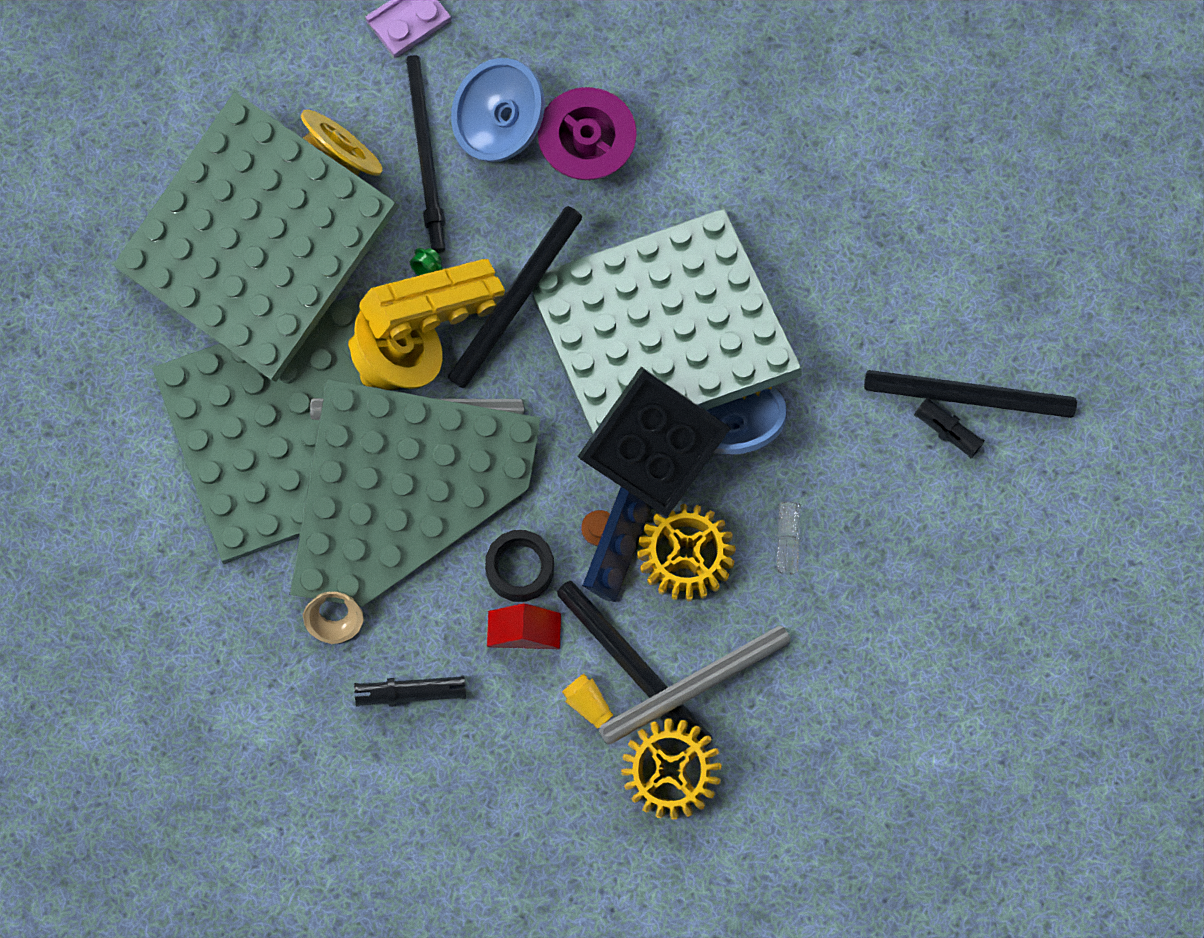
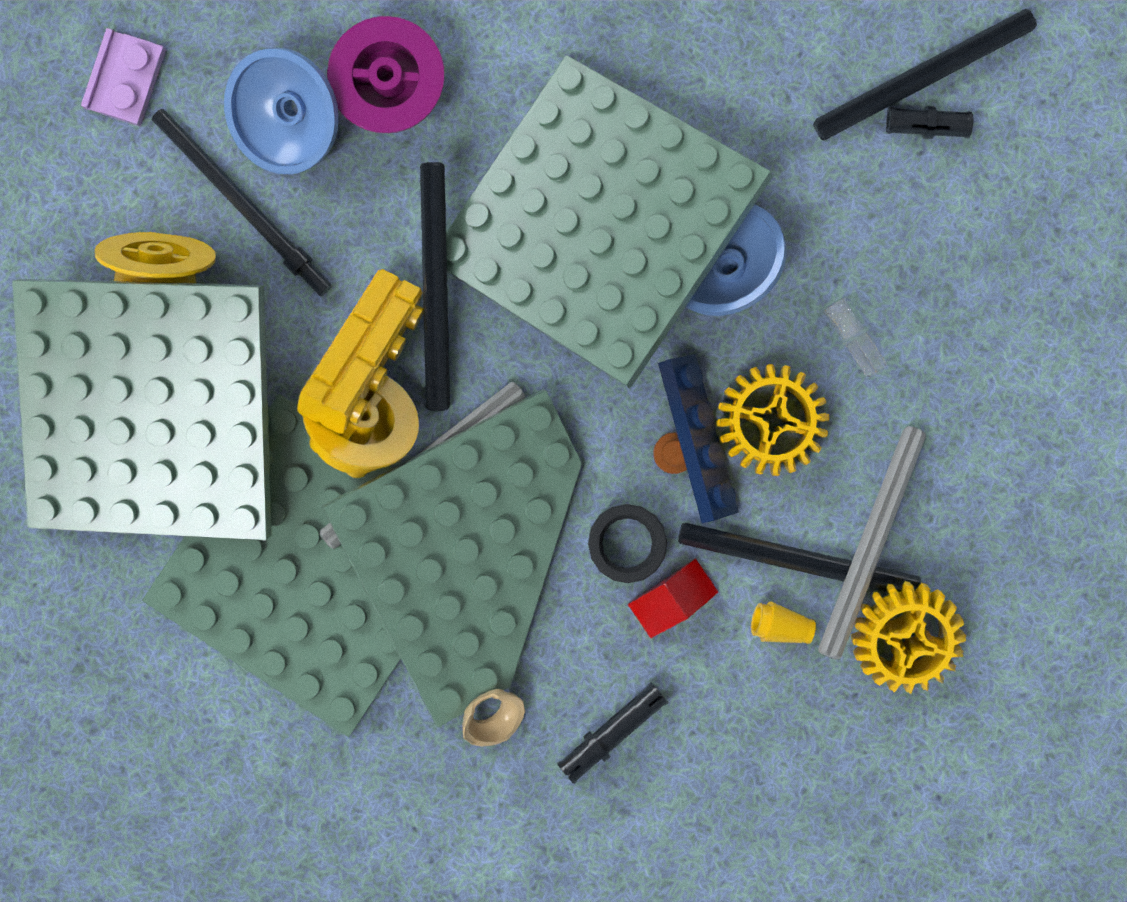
camera: 35 degrees left, 15 degrees up
(425, 261) = (324, 312): green plate -> none
(654, 442) = (682, 346): black plate -> none

